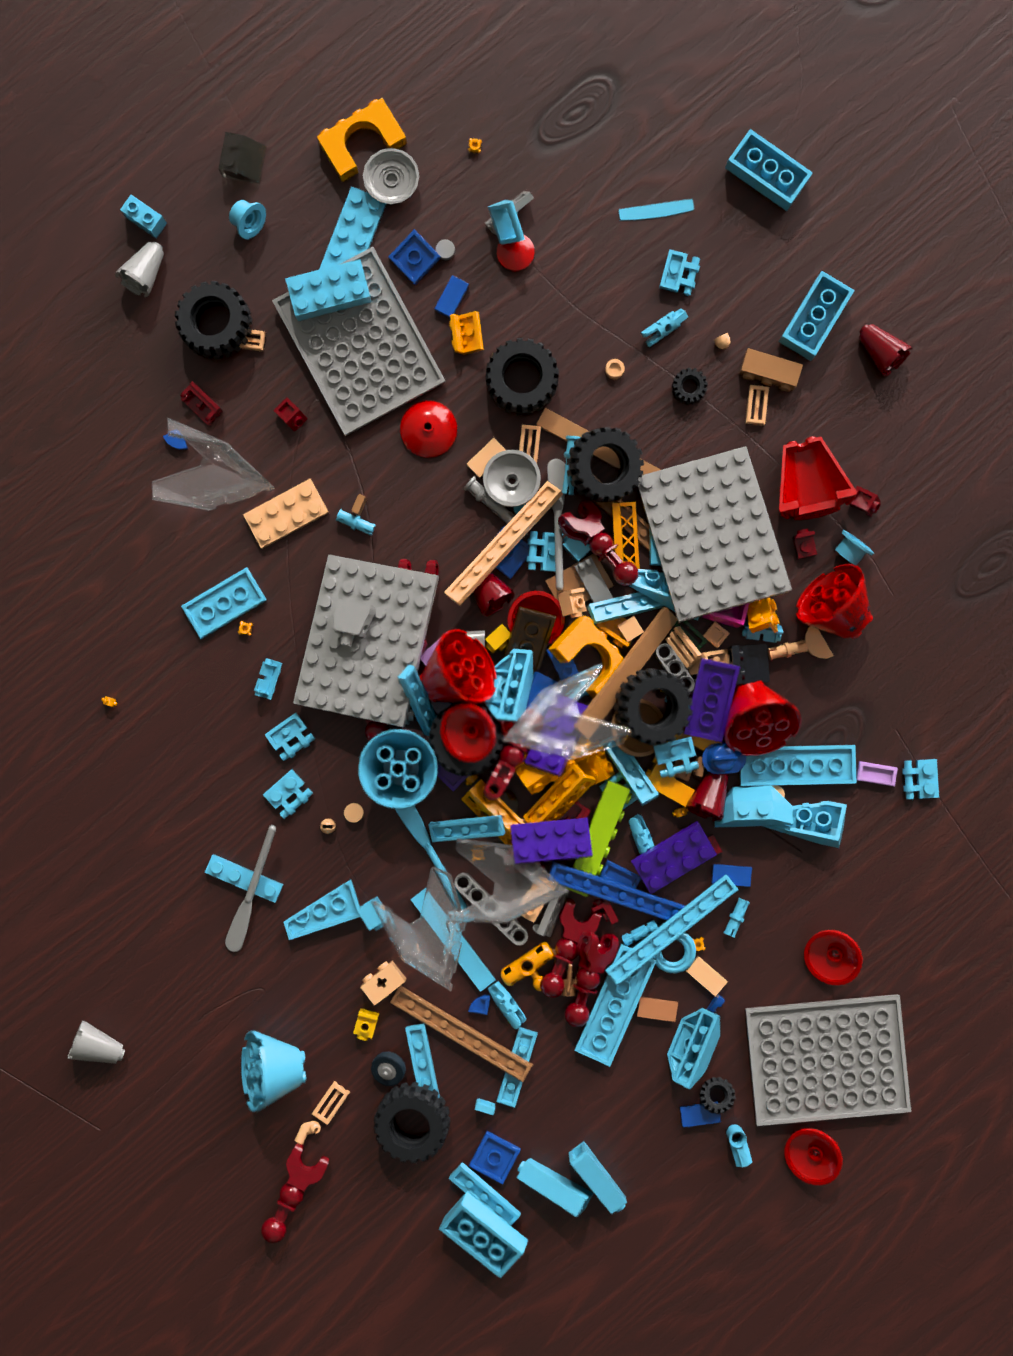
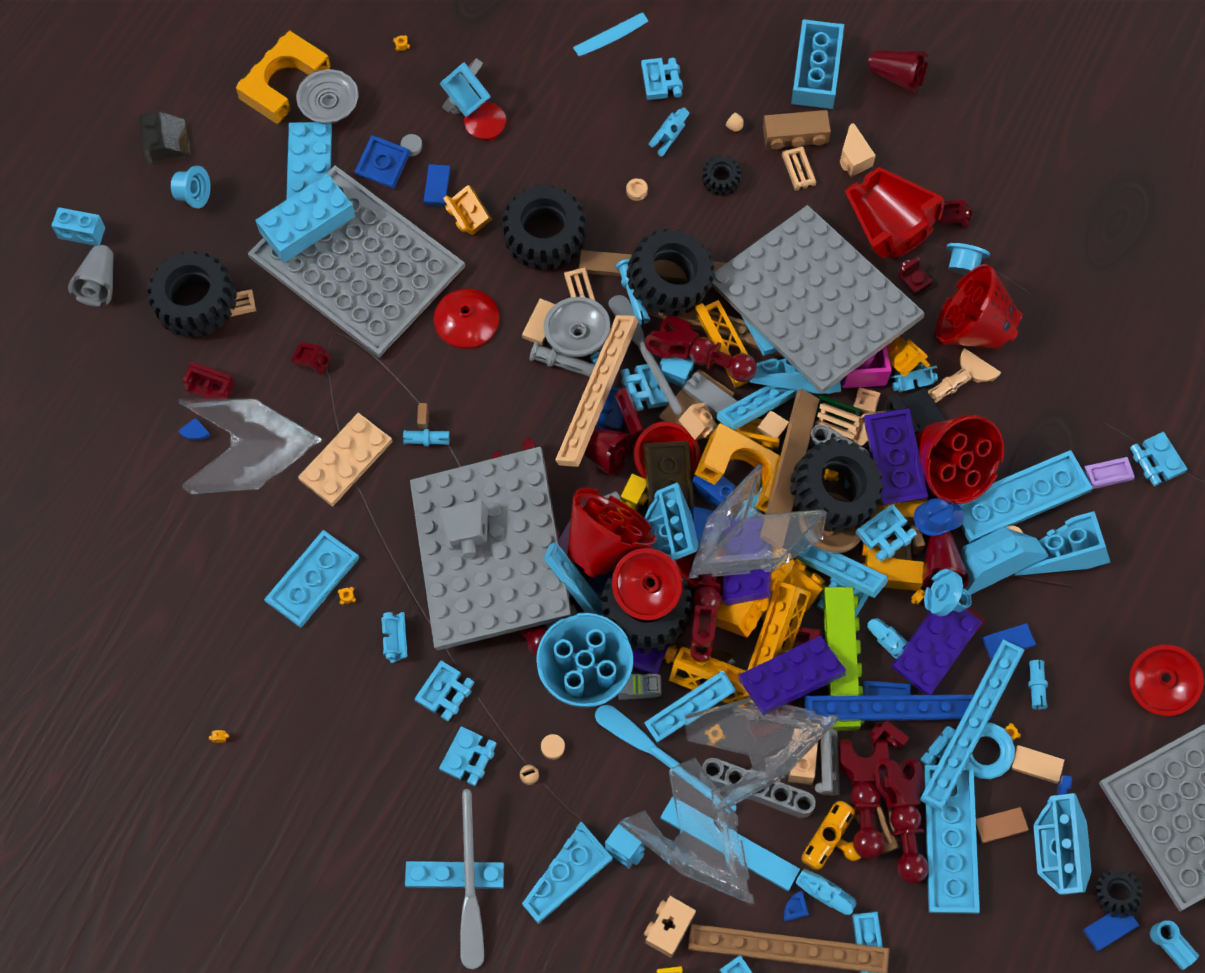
camera: 25 degrees left, 20 degrees down
(441, 796) = (641, 687): none -> light grey leg
(520, 573) = (629, 412): none -> dark red slope
(696, 827) = (946, 593): none -> medium azure tile
(809, 413) = (856, 152): none -> light nougat slope

